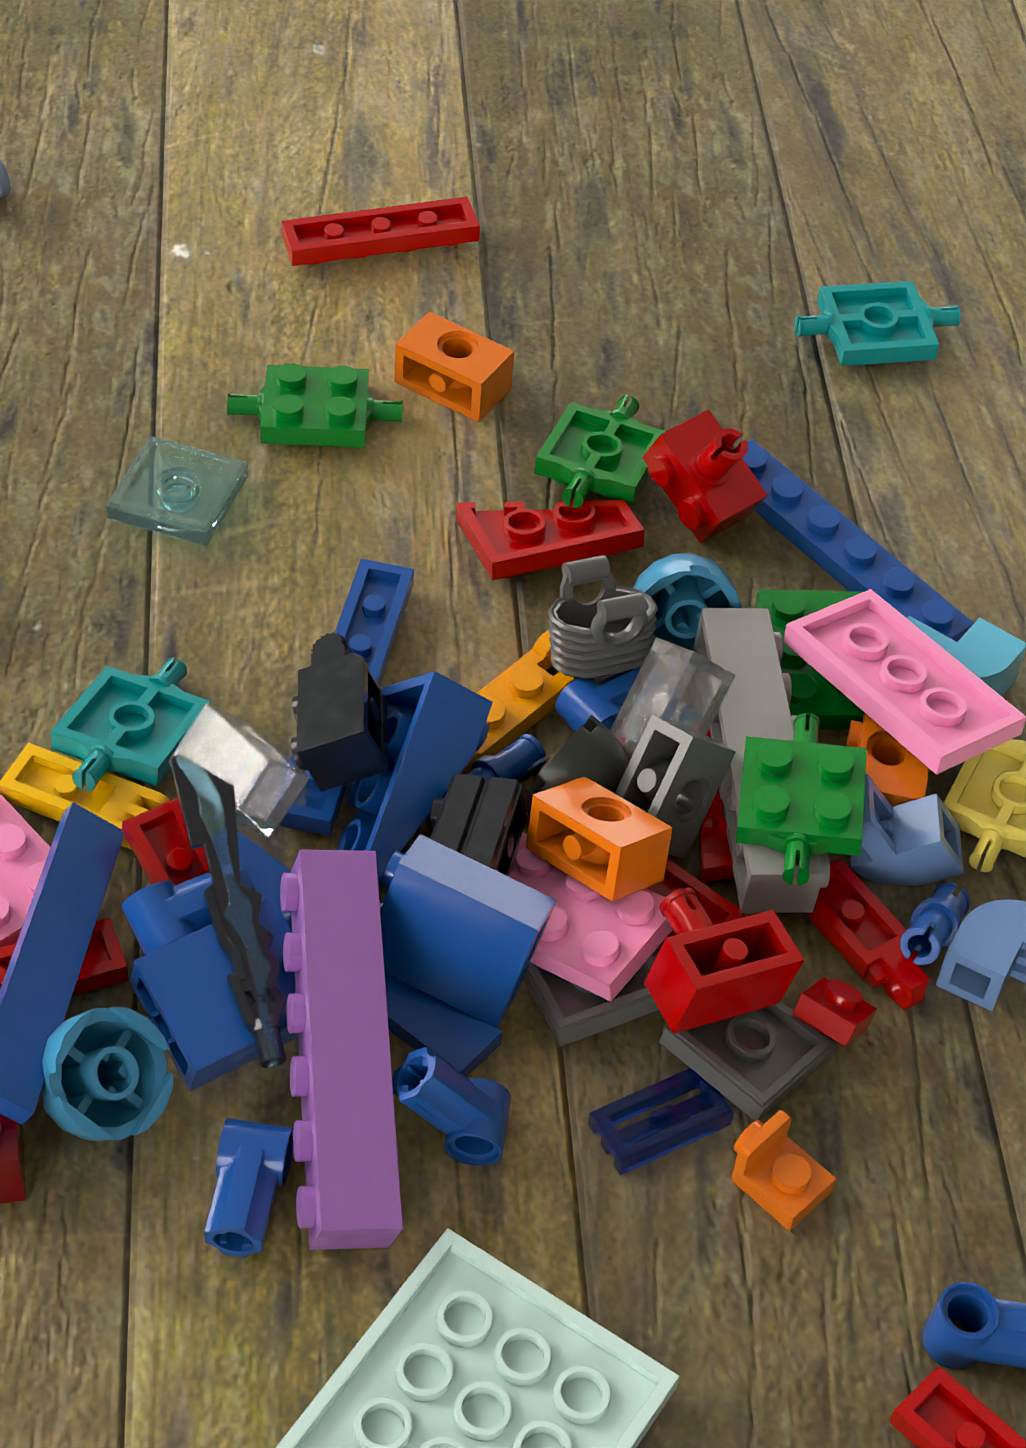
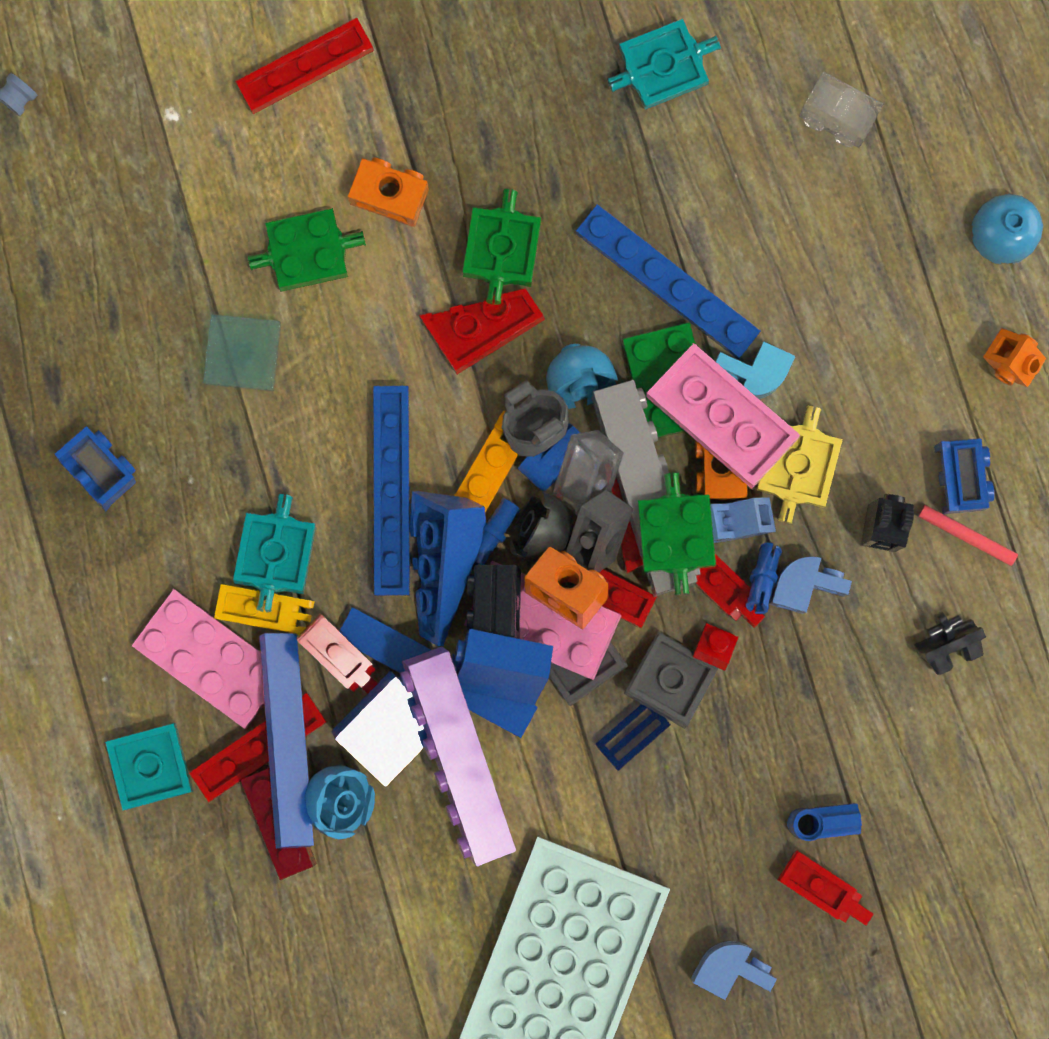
camera: 10 degrees left, 35 degrees up
(170, 912) = (344, 696): blue piece -> none
(233, 907) = (378, 691): black sword -> none
(236, 752) = (348, 581): clear brick -> none
(249, 1169) = (428, 825): blue piece -> none
(339, 717) = (397, 532): black hinge -> none
(465, 1109) = (524, 769): blue piece -> none
(705, 475) = (572, 261): red brick -> none
(719, 968) = (647, 657): red brick -> none
(779, 1171) = (701, 754): orange bracket -> none

